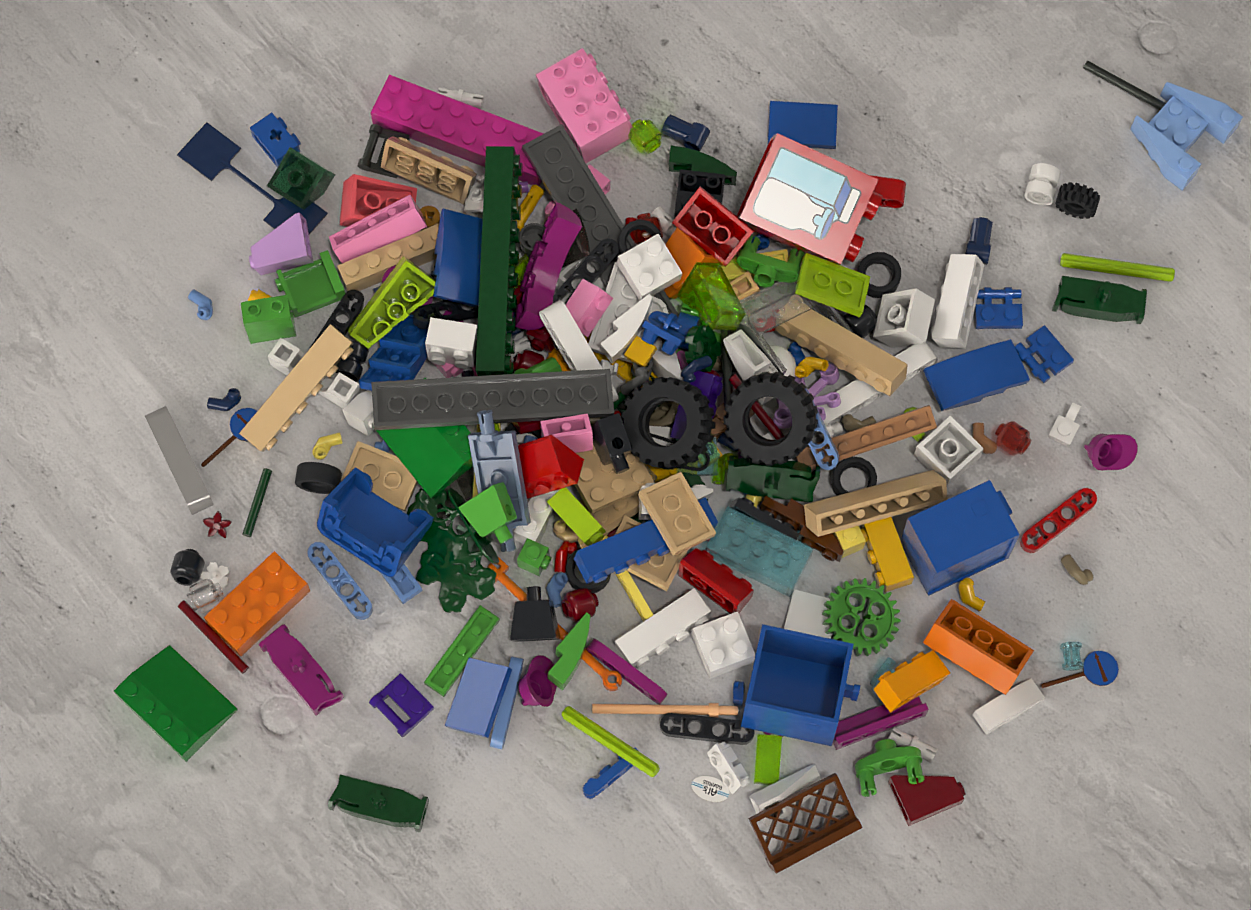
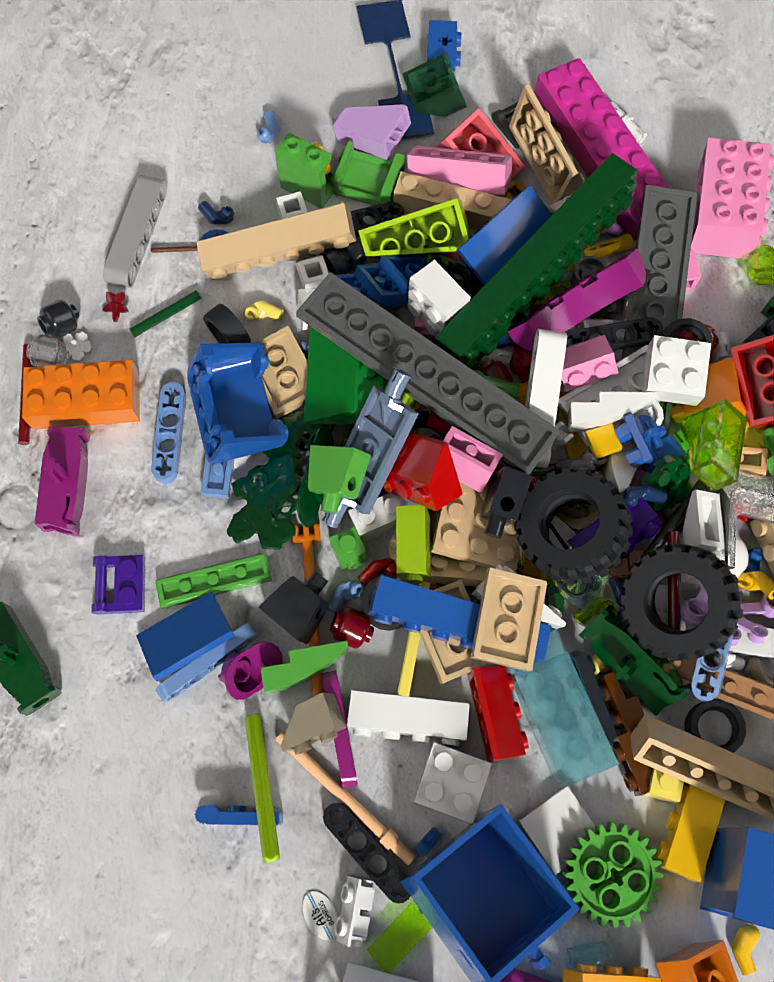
camera: 40 degrees right, 0 degrees up
(609, 677) = (313, 721): none -> dark tan slope

